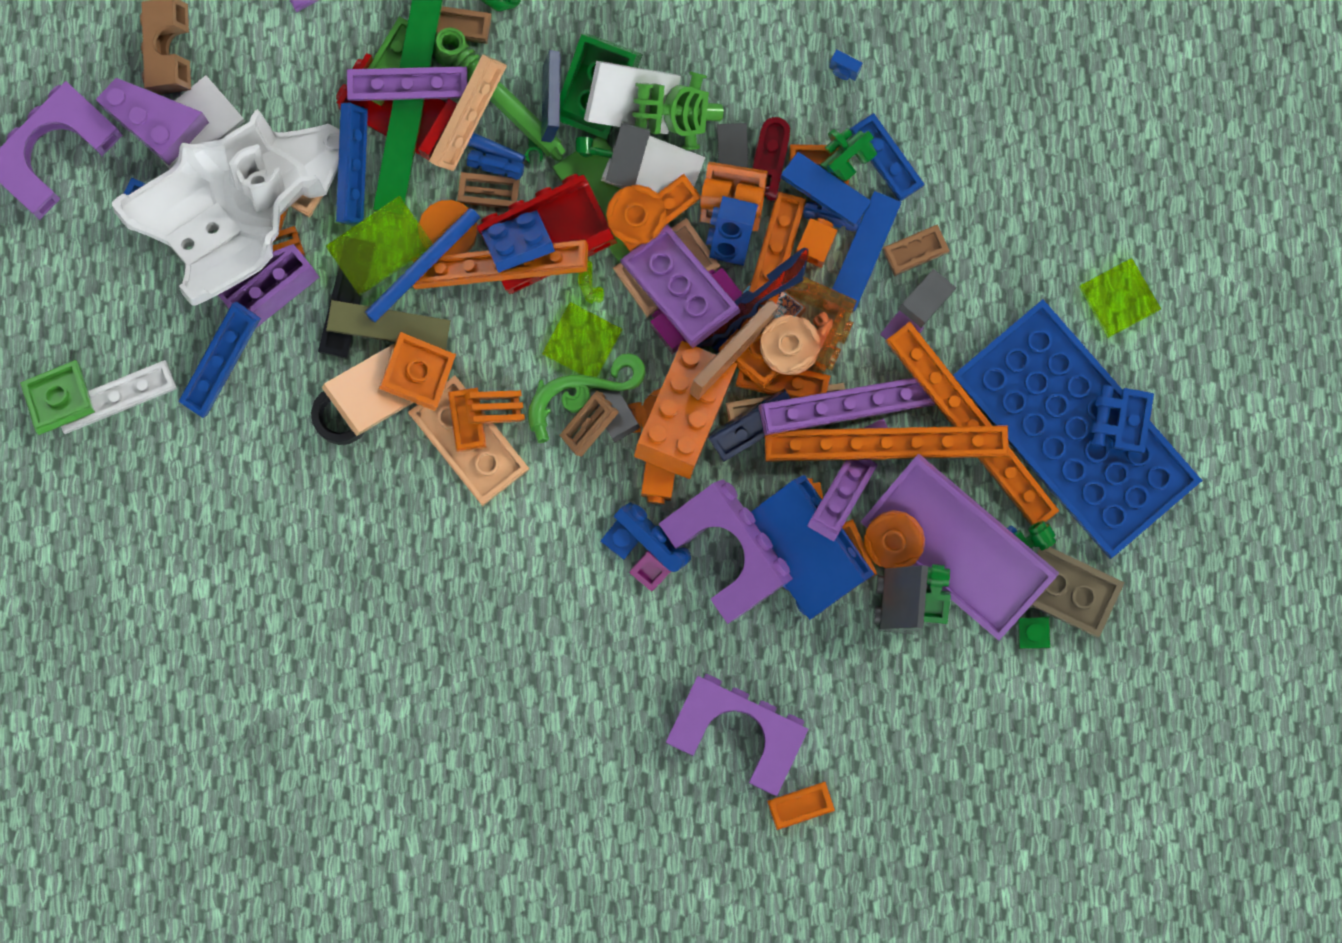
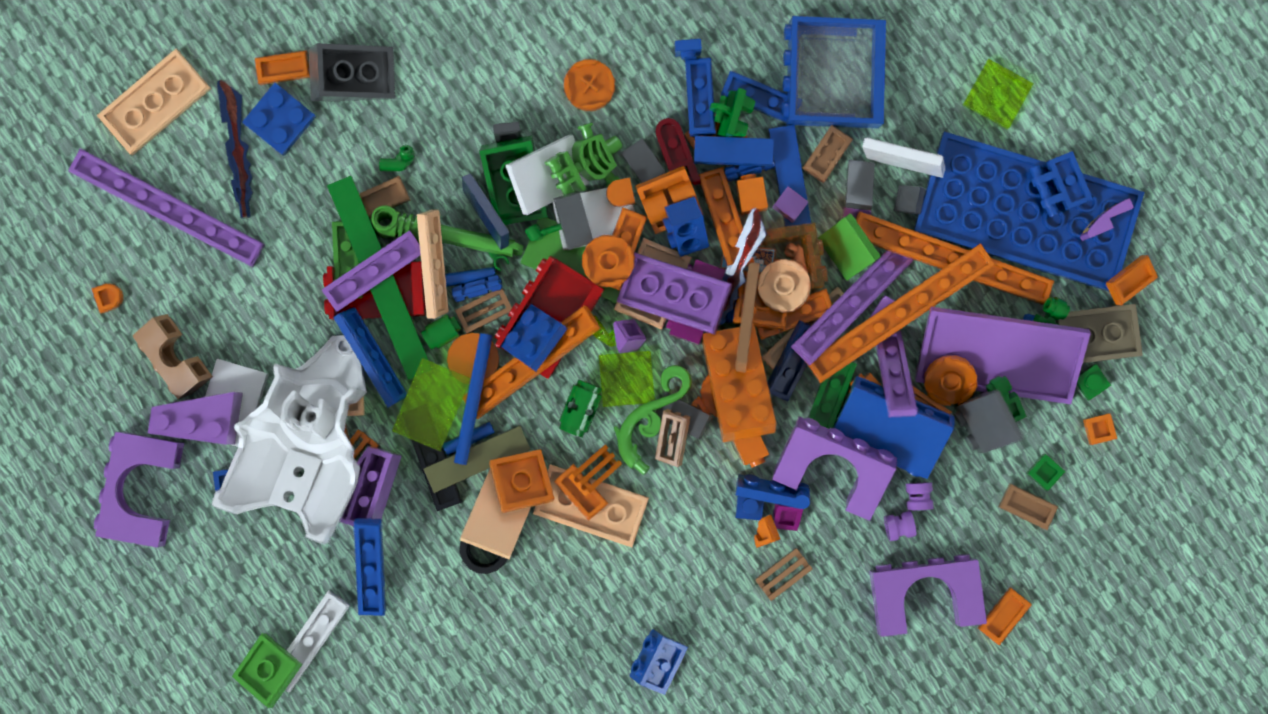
camera: 30 degrees left, 5 degrees up
(405, 303) = (479, 433): none -> blue piece
(434, 184) = (441, 332): none -> green brick
(434, 631) = (657, 662): none -> blue bracket
(531, 331) = (585, 397): none -> green piece
(610, 301) = (628, 336): none -> medium lavender slope
(611, 625) = (801, 561): none -> medium nougat tile
(621, 35) = (507, 131): none -> dark grey tile
(621, 572) = (766, 532): none -> orange tile
(690, 160) = (620, 193): none -> orange tile
(728, 42) = (589, 85): none -> orange tile
(754, 650) = (900, 526): none -> medium lavender wheel
(769, 481) = (830, 396): none -> green plate
(790, 640) = (919, 502): none -> medium lavender wheel
(828, 115) = (700, 97): none -> blue tile
(847, 274) = (790, 204): none -> medium lavender slope
(877, 349) = (849, 247): none -> bright green tile
(893, 714) = (1028, 506): none -> medium nougat tile
(931, 690) = (1045, 472): none -> green plate
(967, 343) = (909, 199): none -> dark grey tile
(972, 176) = (834, 72): none -> clear piece
(985, 296) = (904, 157): none -> white tile
(1012, 683) = (1100, 429): none -> orange tile
(1135, 557) = (1131, 280): none -> orange tile
(1138, 481) = (1102, 222): none -> medium lavender slope

